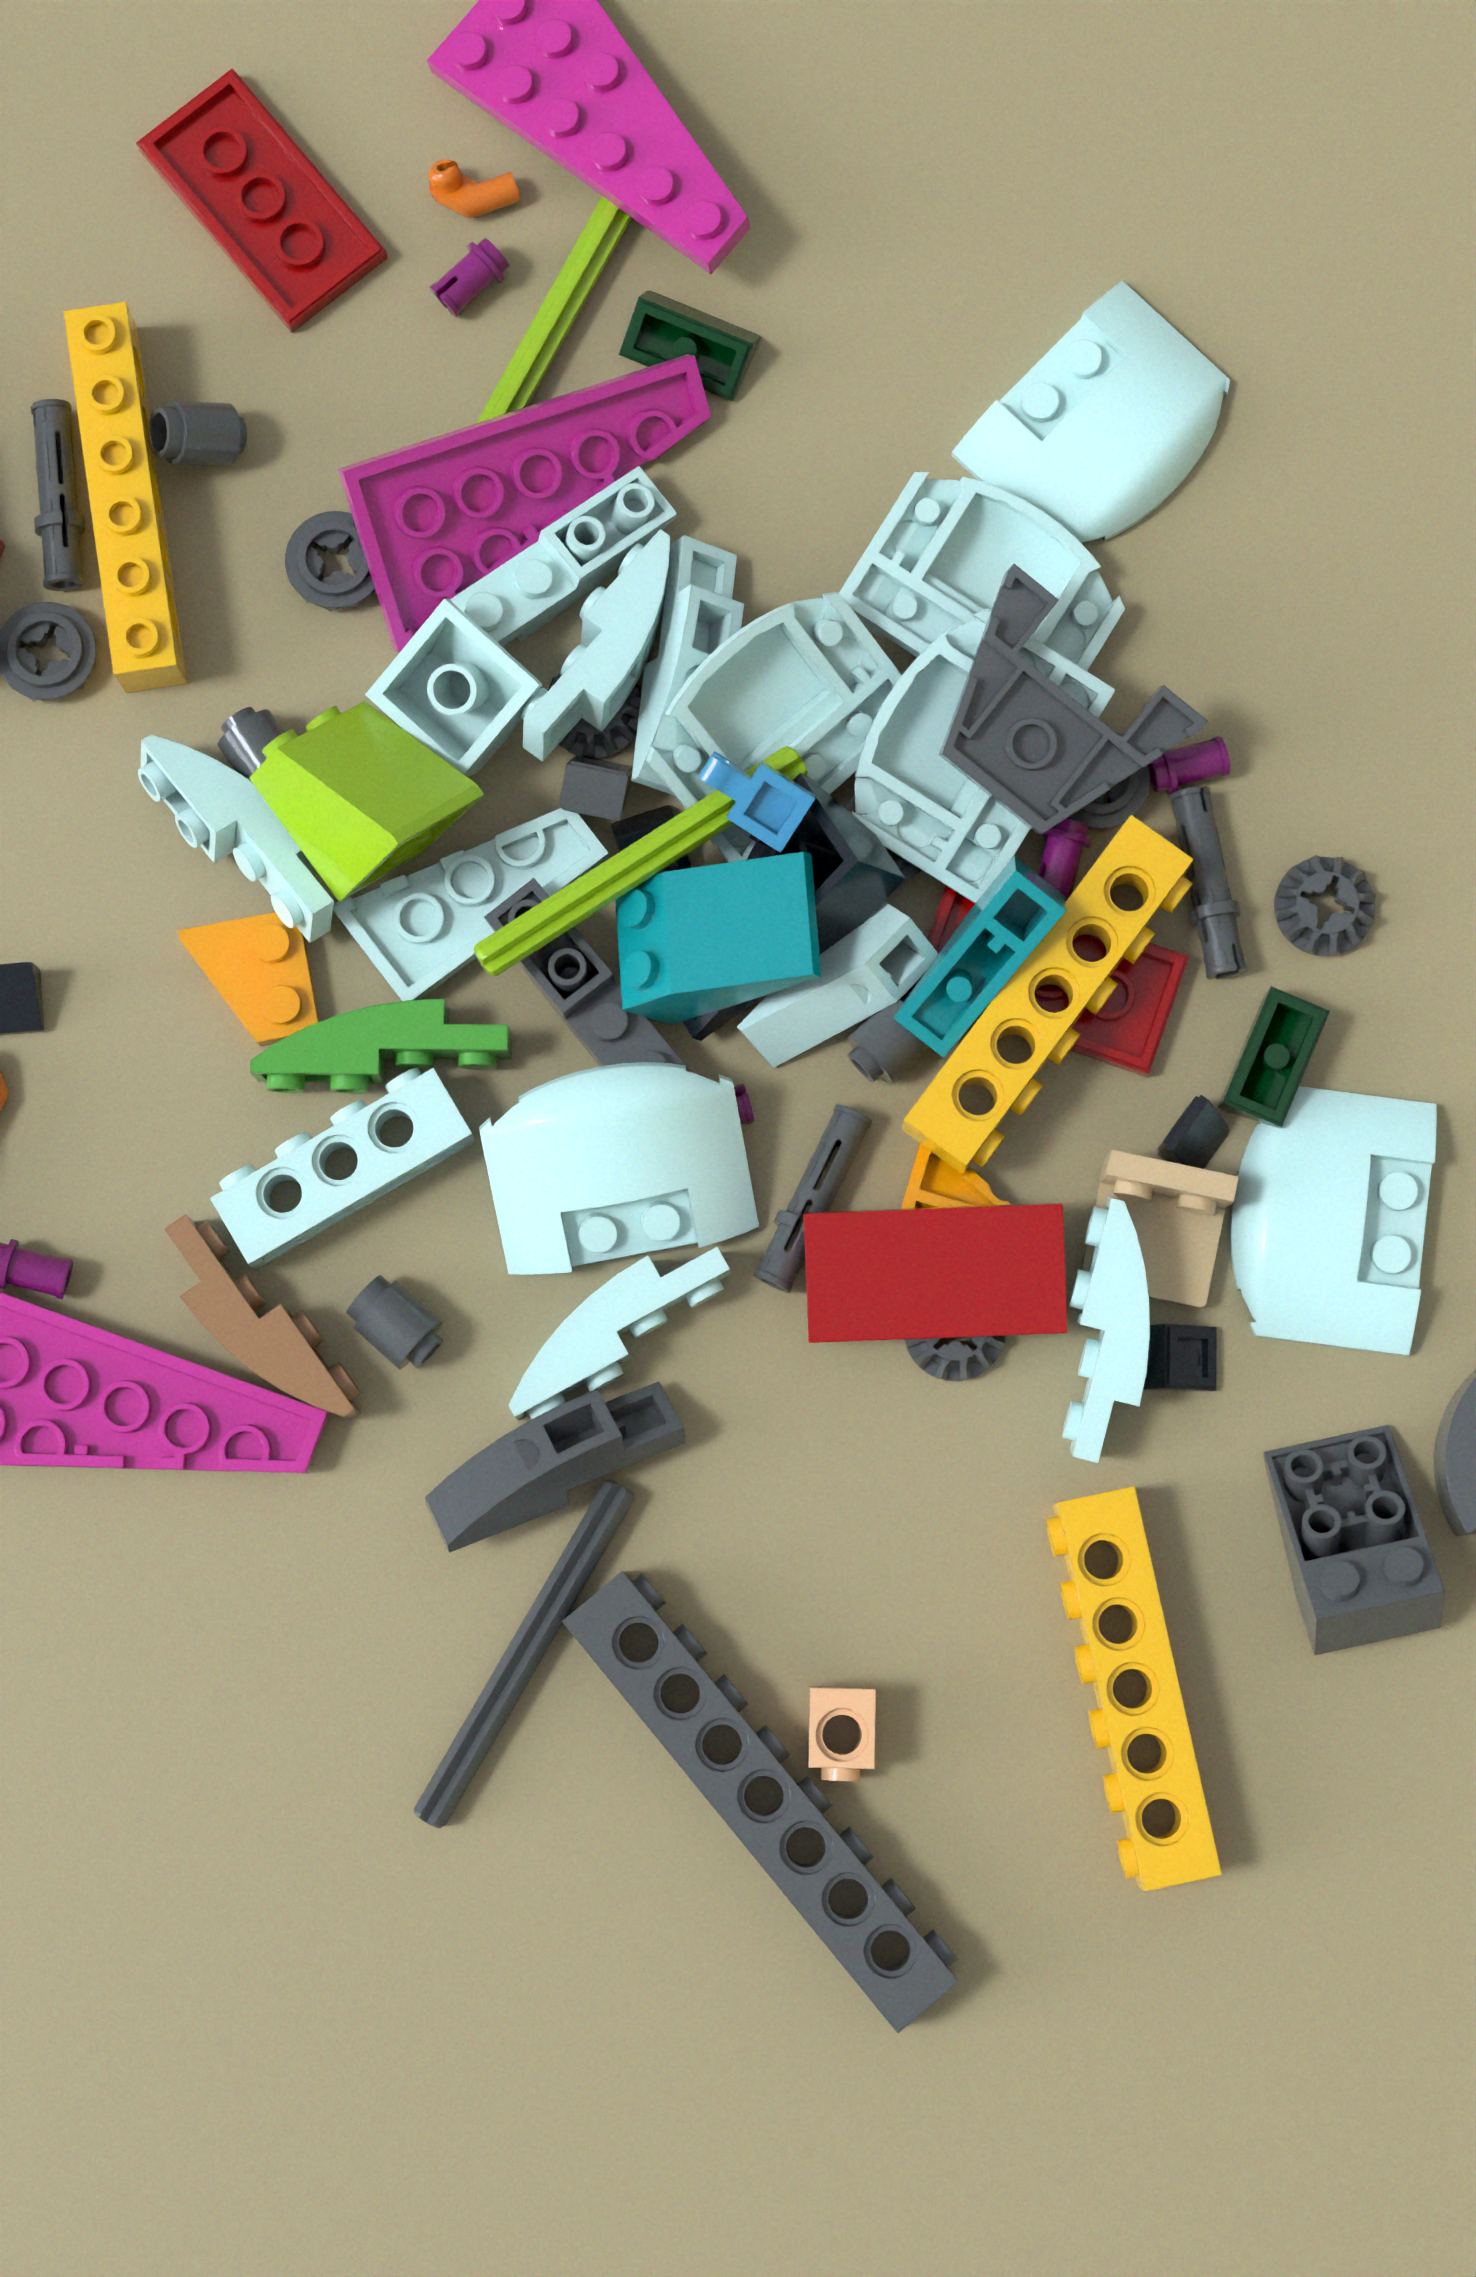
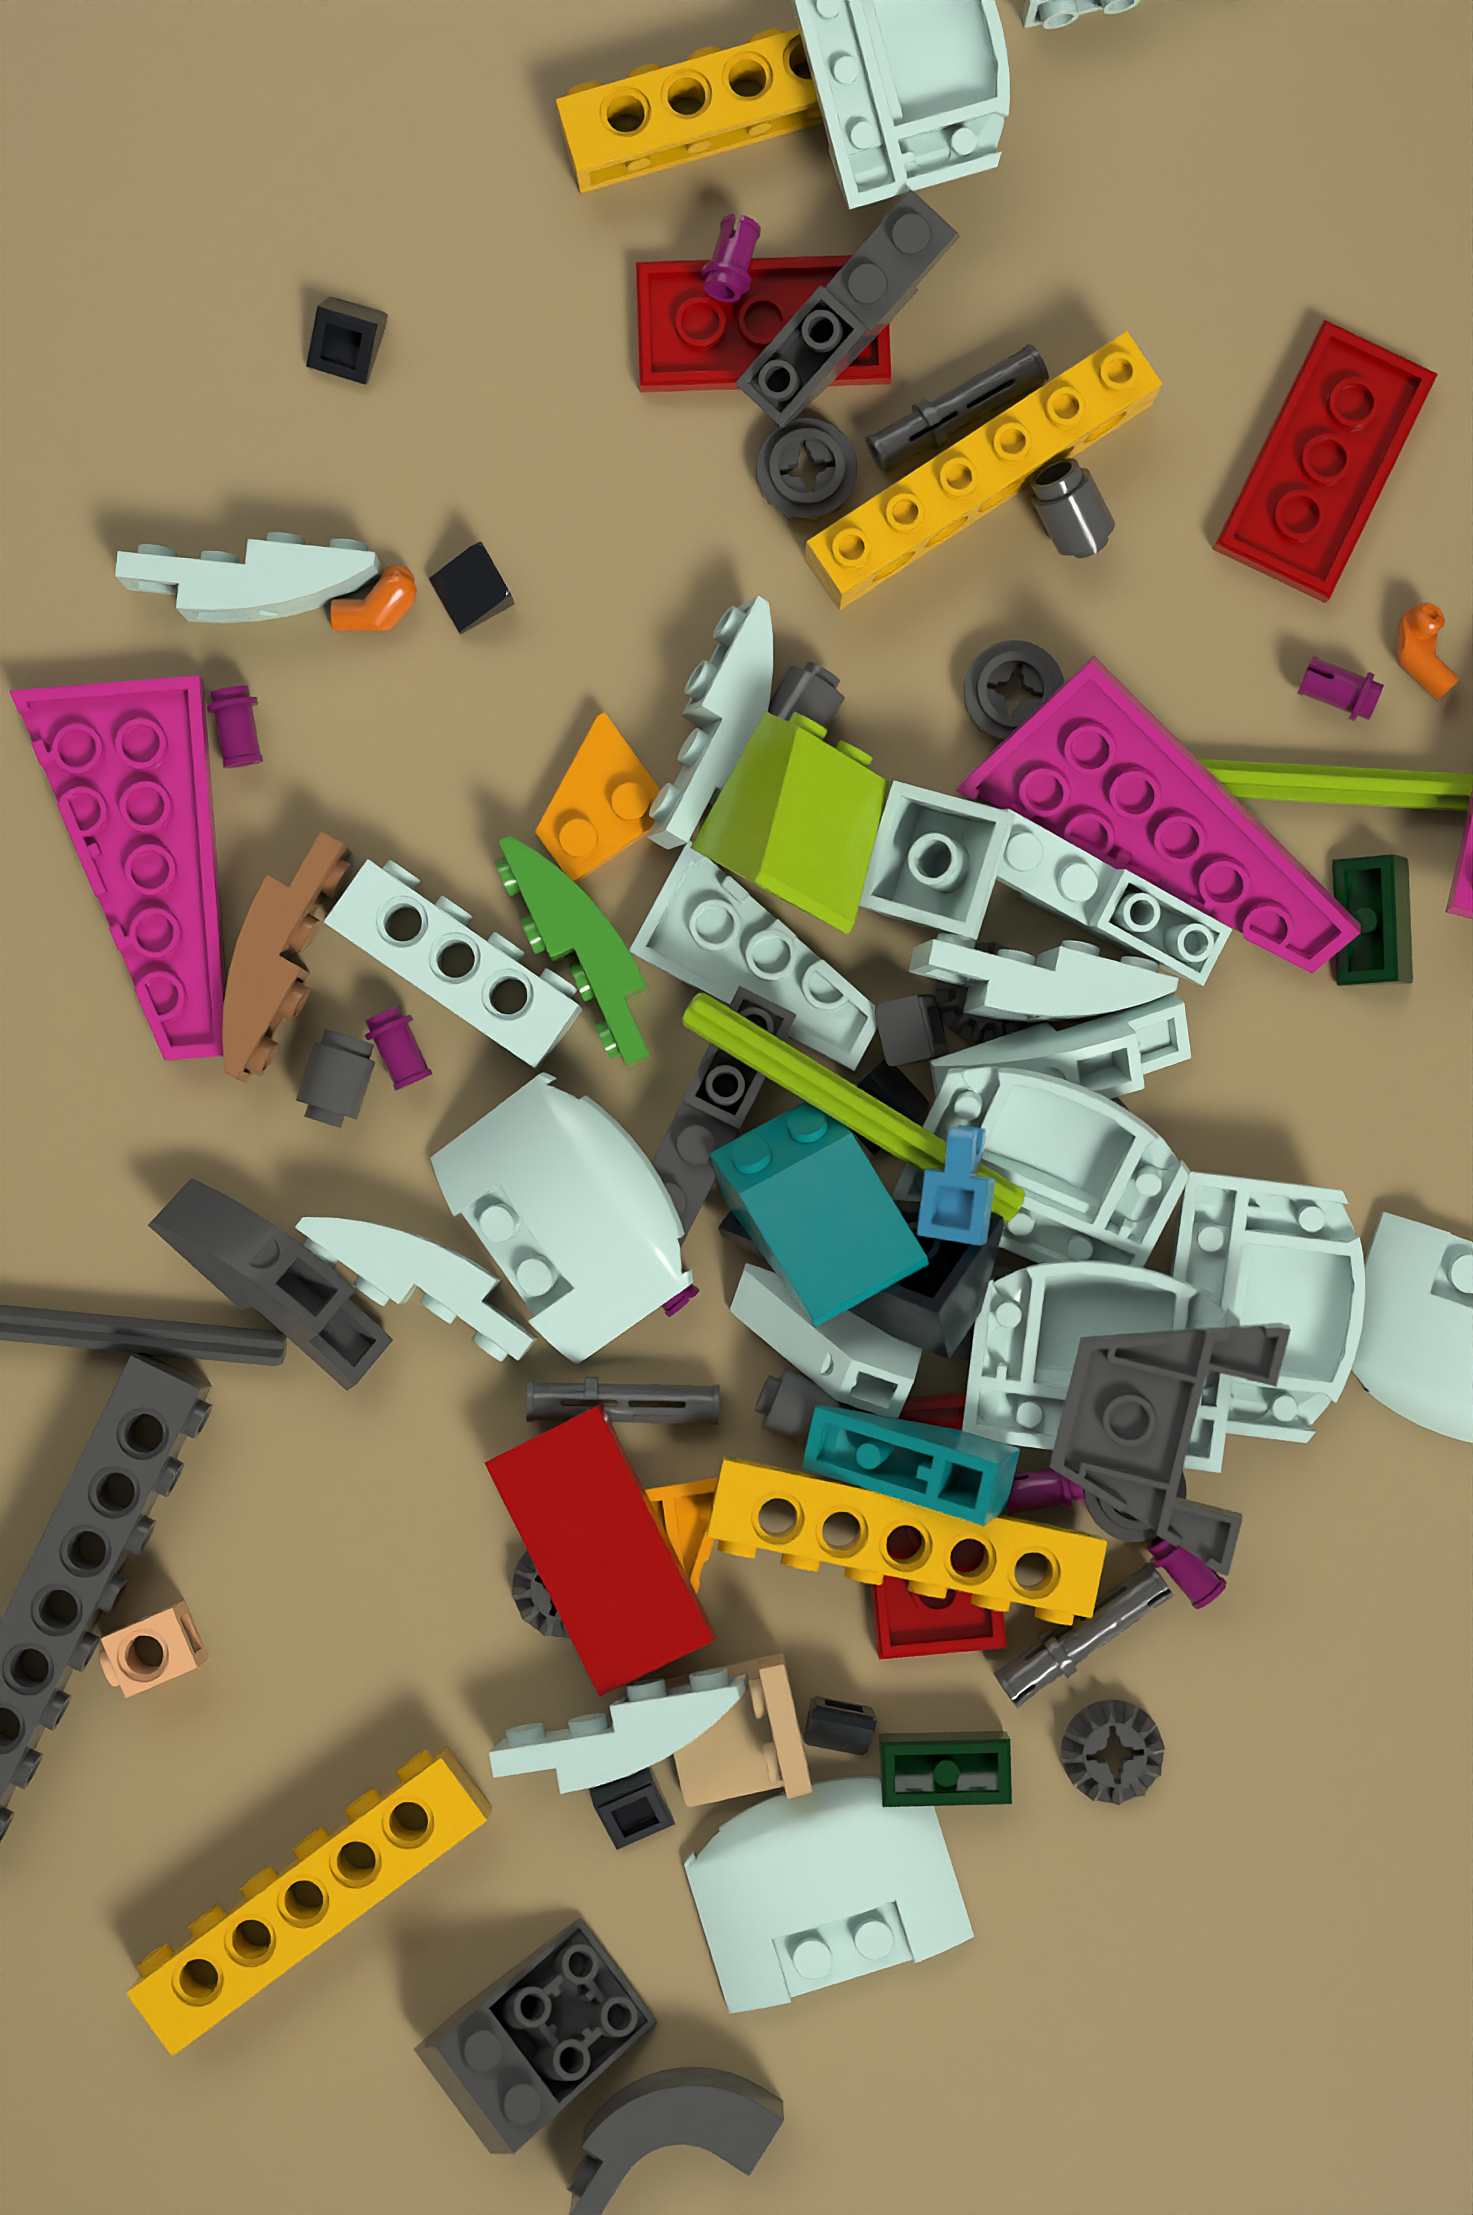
camera: 65 degrees right, 5 degrees up
(393, 1255) = (397, 1047): none -> magenta pin

